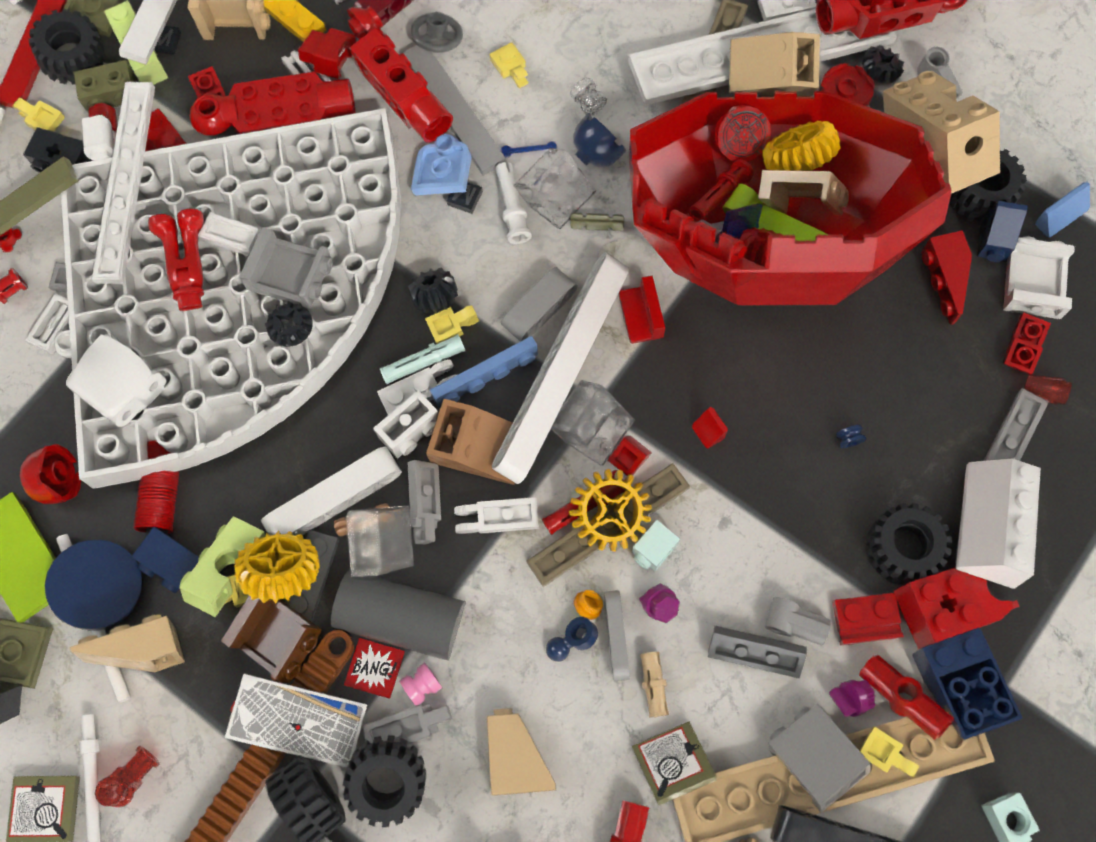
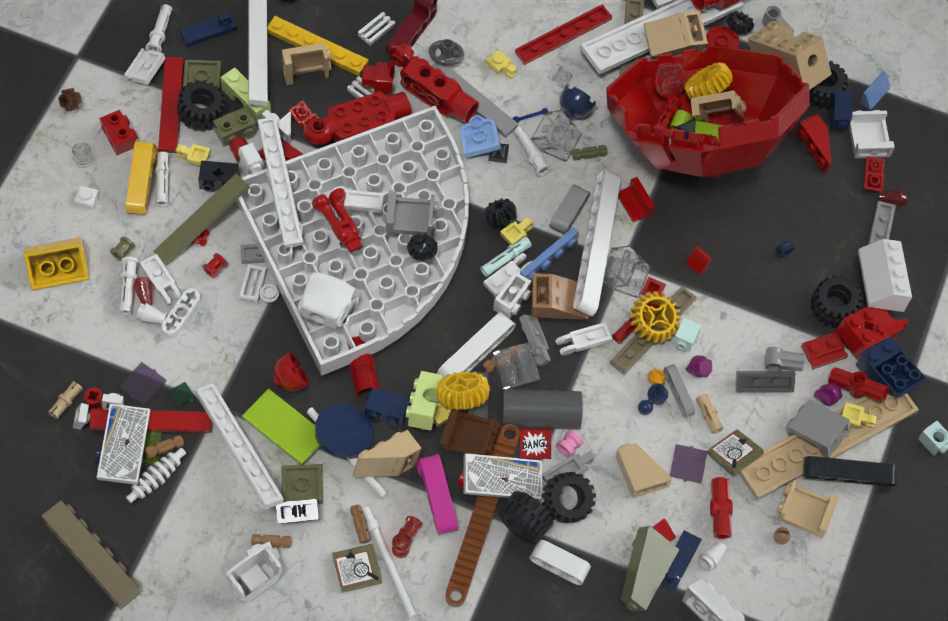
camera: 25 degrees left, 10 degrees down
(71, 737) = (360, 524): none -> medium nougat axle
(173, 97) = (284, 125): none -> white slope
(192, 720) = (438, 494): none -> dark pink beam
(597, 759) = (688, 463): none -> clear purple piece
(615, 36) = (563, 34): none -> red tile

